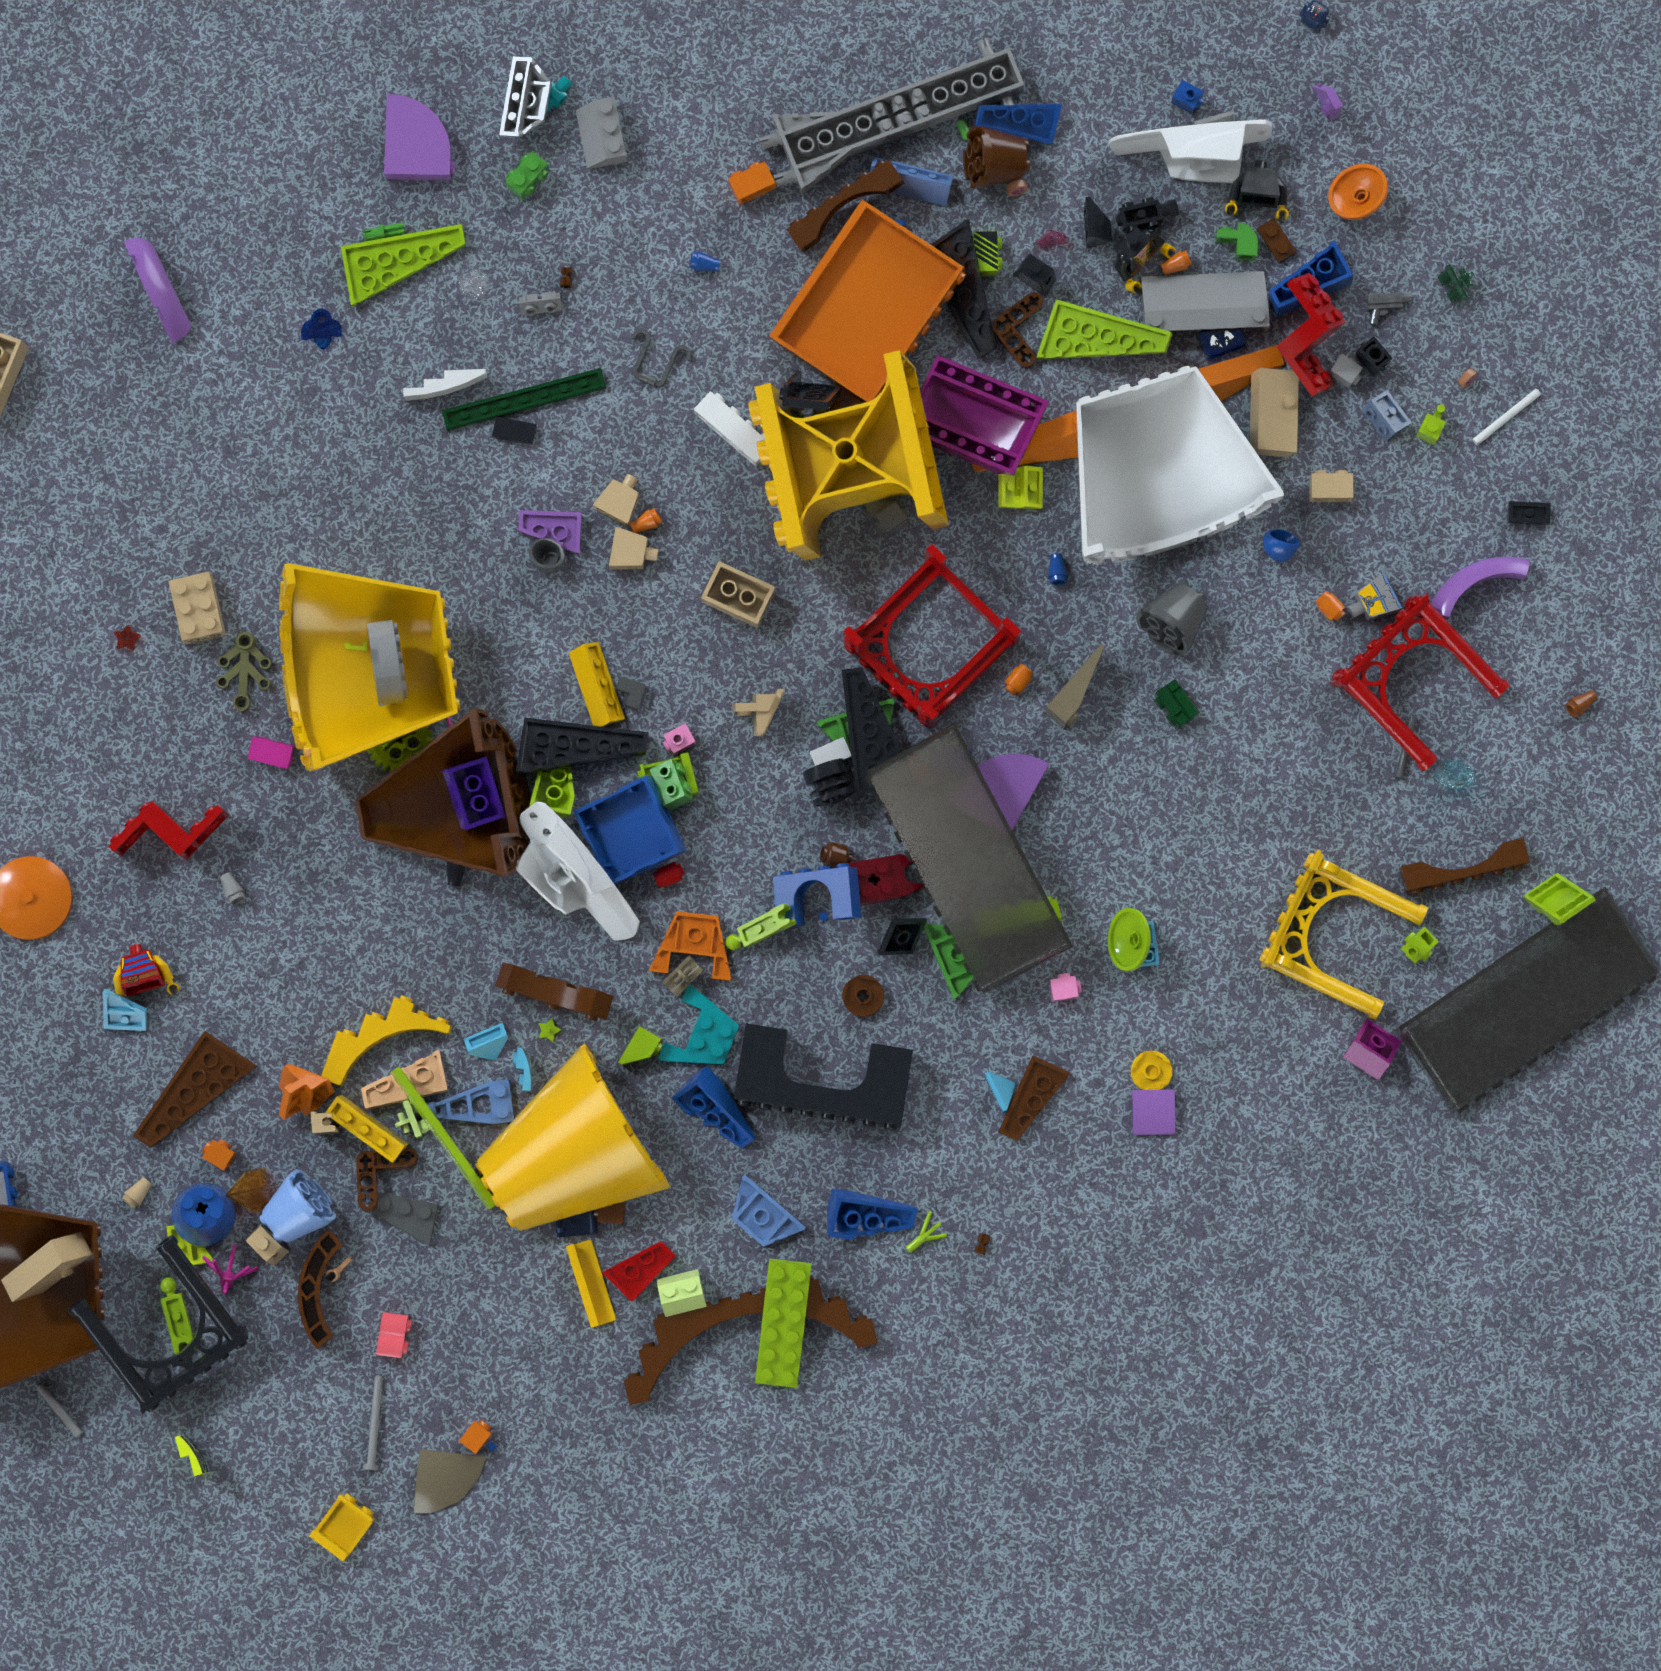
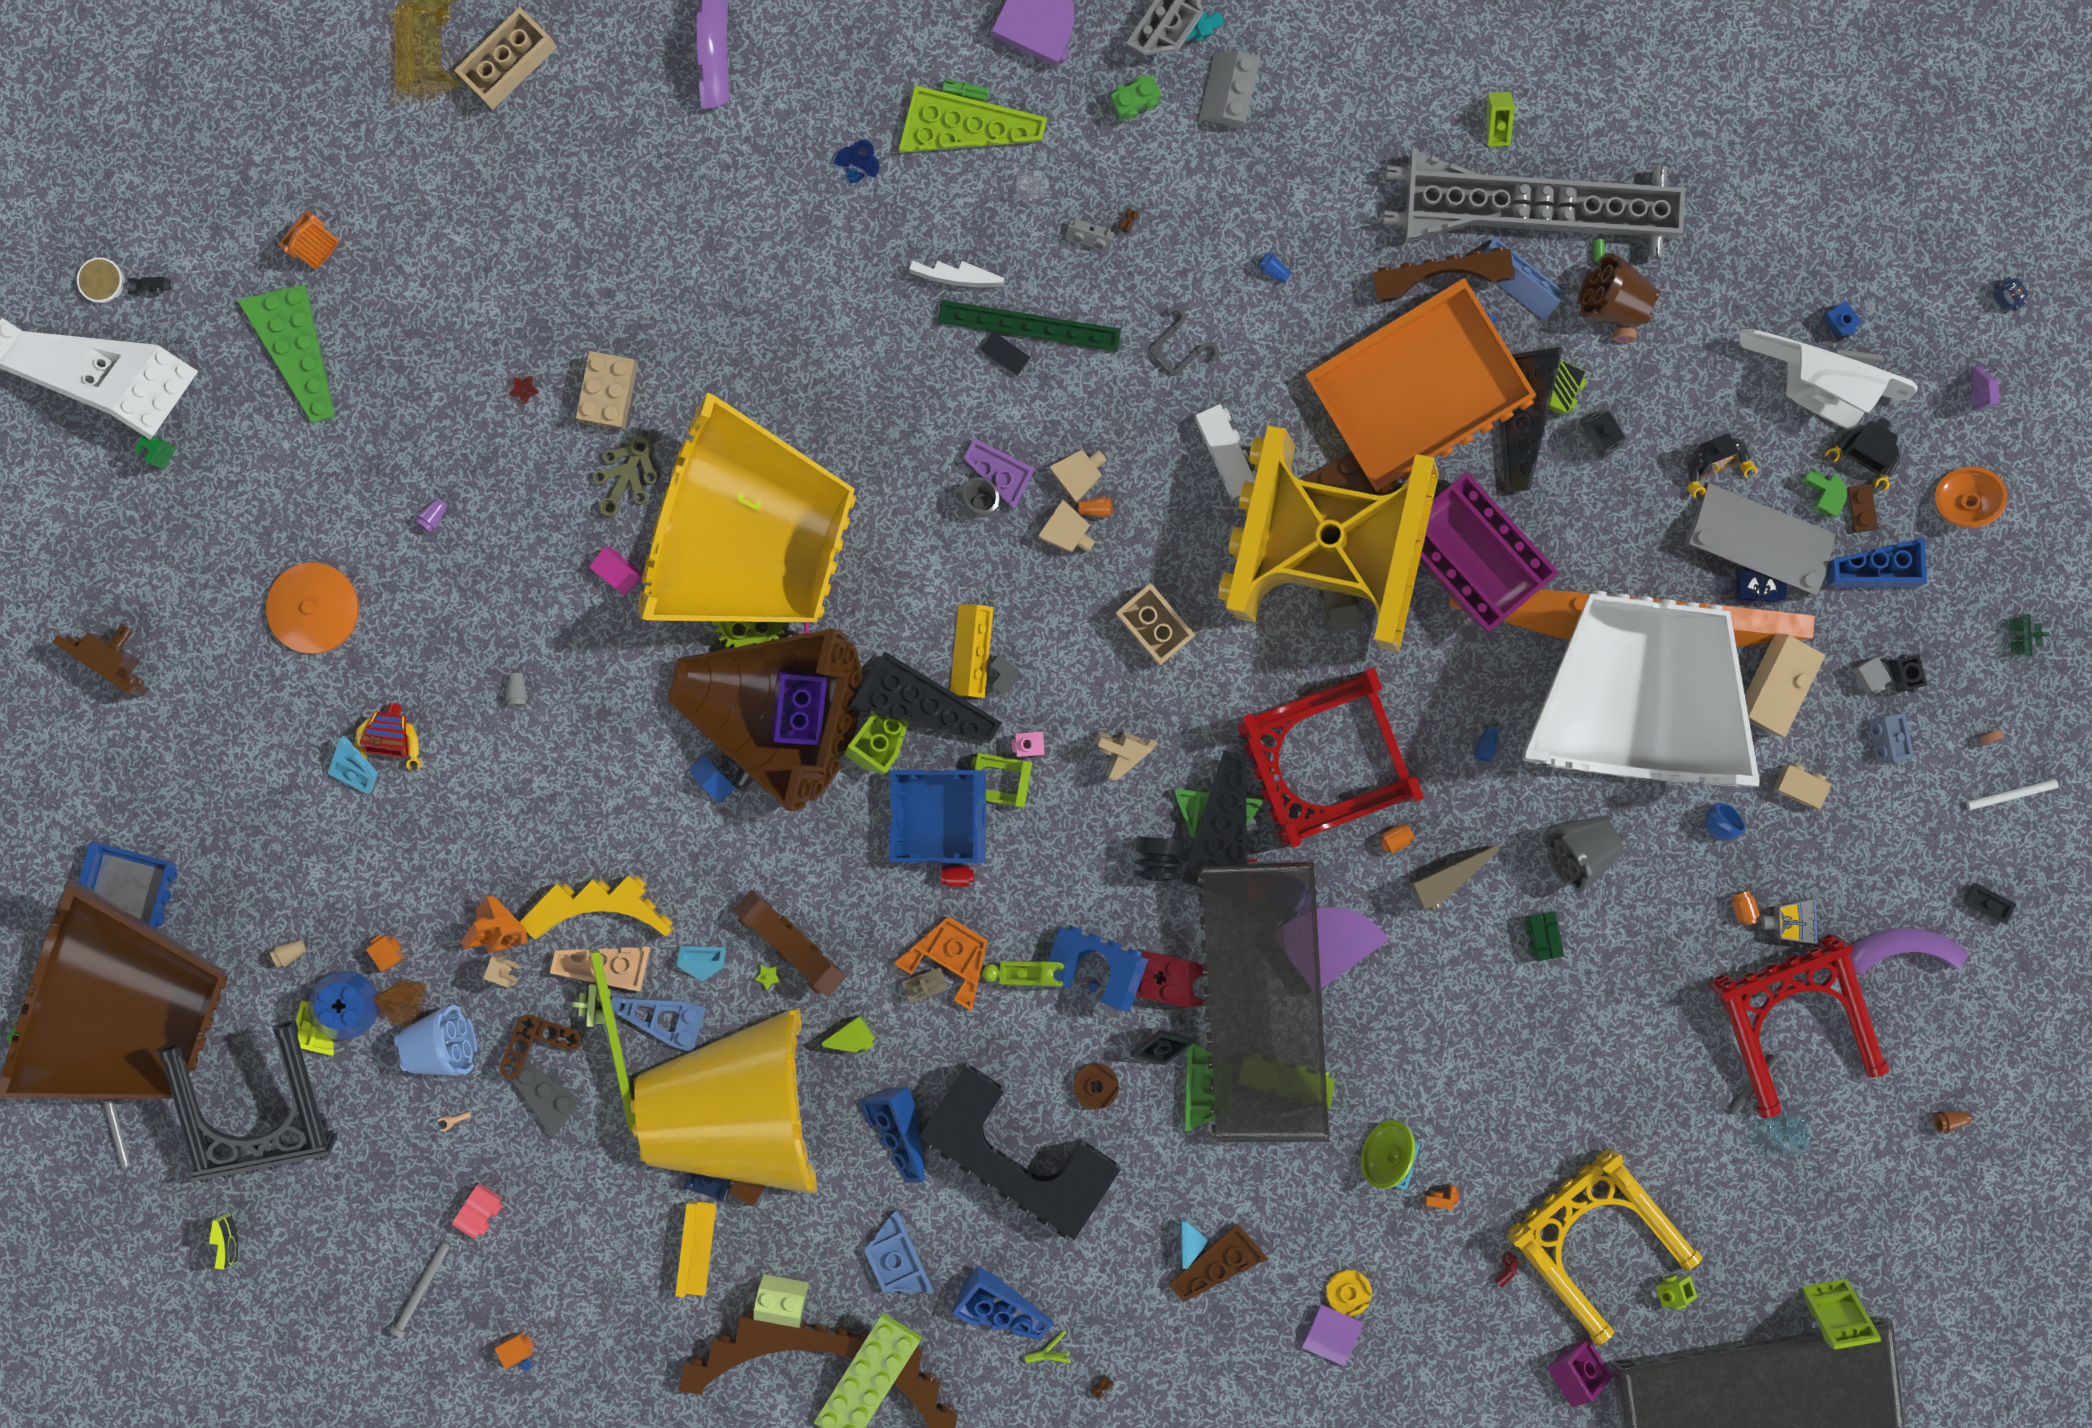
camera: 20 degrees right, 5 degrees up
(46, 1267) = (158, 994): tan brick -> none
(96, 776) = (431, 515): none -> medium lavender cone
(168, 830) = (477, 603): red bracket -> none
(176, 1315) = (271, 1096): lime plate -> none
(198, 1081) = (400, 868): reddish brown wing -> none
(227, 1277) = (339, 1079): dark pink plant -> none
(265, 1245) = (387, 1065): tan torso -> none
(310, 1288) = (408, 1143): reddish brown brick -> none
(343, 1526) = (343, 1378): yellow panel -> none
(367, 1128) = (543, 993): yellow panel -> none
(387, 662) = (769, 536): light grey piece -> none
(428, 887) = (711, 779): none -> blue slope
(444, 1478) = (465, 1376): dark tan brick -> none
(521, 1061) = (726, 999): medium azure slope -> none
(569, 875) = (856, 833): white piece -> none
(639, 1270) = (750, 1258): red wing -> none
(671, 784) = (1000, 787): bright green brick -> none
(710, 1037) = (924, 1057): teal wing -> none
(751, 182) = (1359, 207): orange brick -> none
(808, 395) = (1318, 456): black bracket -> none
(831, 751) = (1174, 827): white sticker -> none
(833, 60) = (1499, 118): none -> lime slope
(835, 854) = (1132, 933): reddish brown head -> none
(1011, 332) = (1551, 480): reddish brown beam -> none
(1021, 490) = (1488, 649): neon yellow slope -> none
(1022, 120) = (1665, 270): blue wing -> none
(1051, 236) = (1637, 401): clear pink arm -> none
(1065, 987) = (1301, 1170): bright pink brick -> none
(1090, 333) = (1629, 517): lime wing -> none
(1096, 224) = (1688, 409): black slope -> none
(1139, 211) = (1736, 418): black brick -> none
(1176, 263) = (1751, 486): orange cone -> none
(1189, 959) = (1437, 1199): none -> orange bracket
(1275, 992) = (1509, 1271): none -> dark red arm
(1322, 323) = (1877, 618): red bracket -> none
(1381, 303) = (1939, 621): flat silver piece -> none
(1422, 875) = (1803, 1240): reddish brown arch -> none
(1432, 426) = (1933, 771): lime brick -> none

